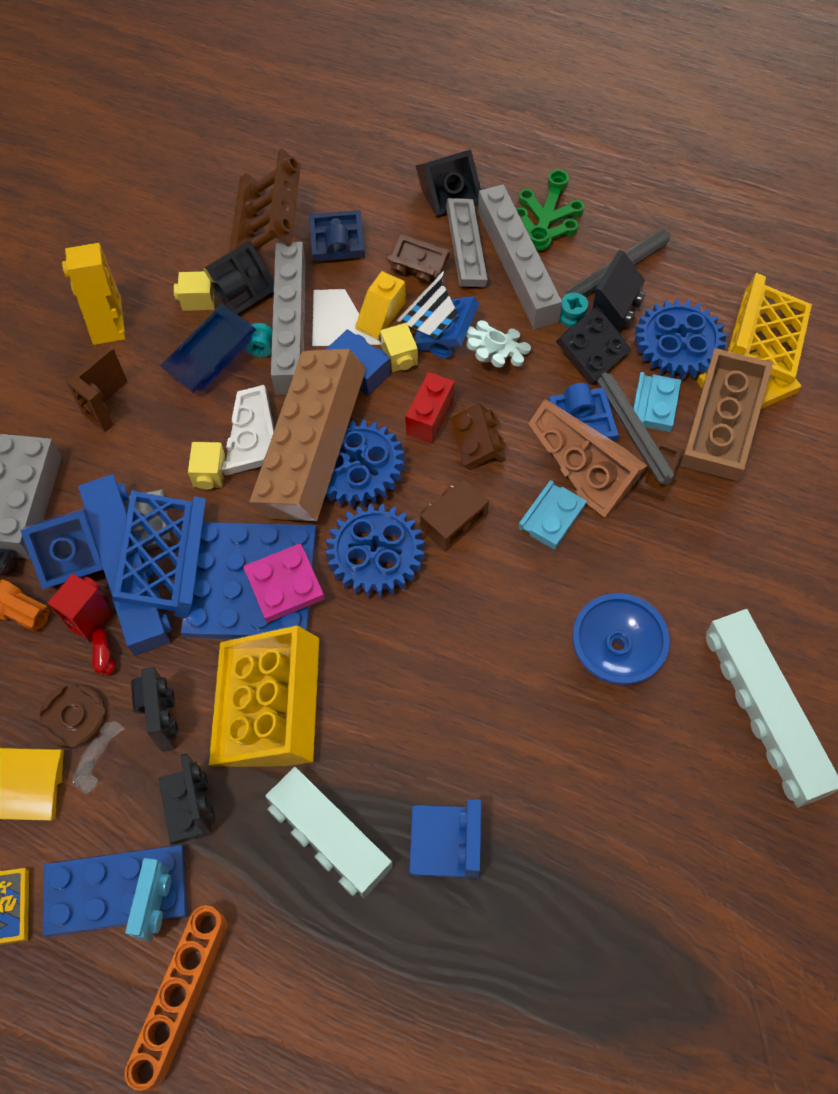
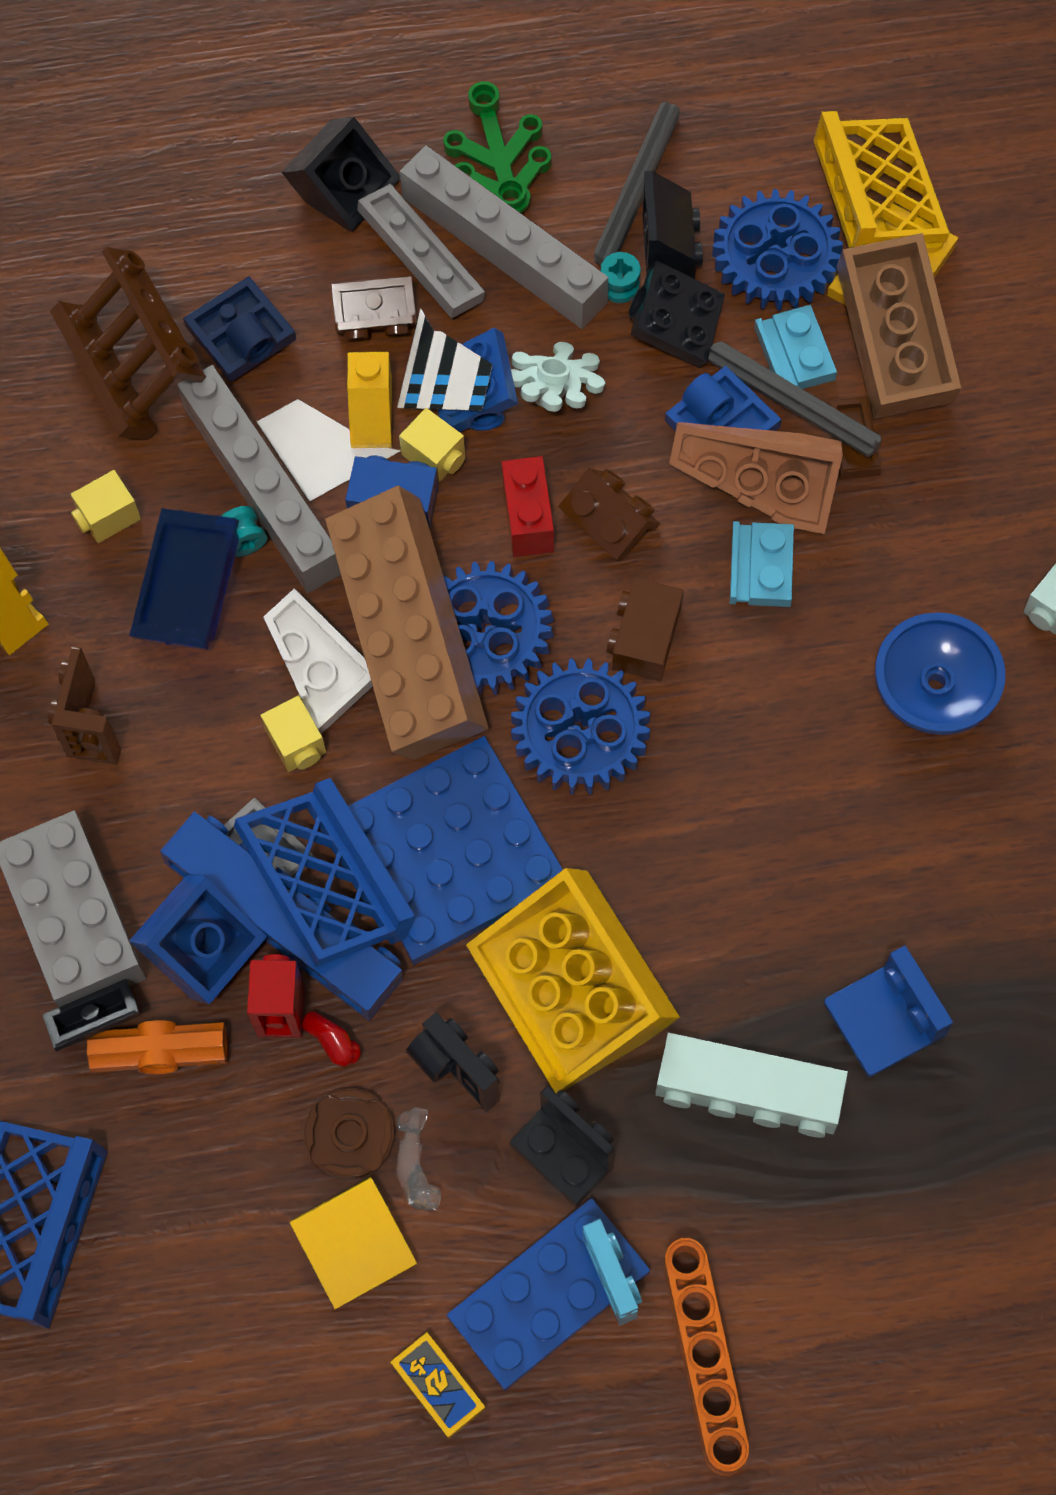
camera: 30 degrees left, 5 degrees up
(240, 278) = (158, 458): black plate -> none
(283, 583) = (501, 828): dark pink plate -> none

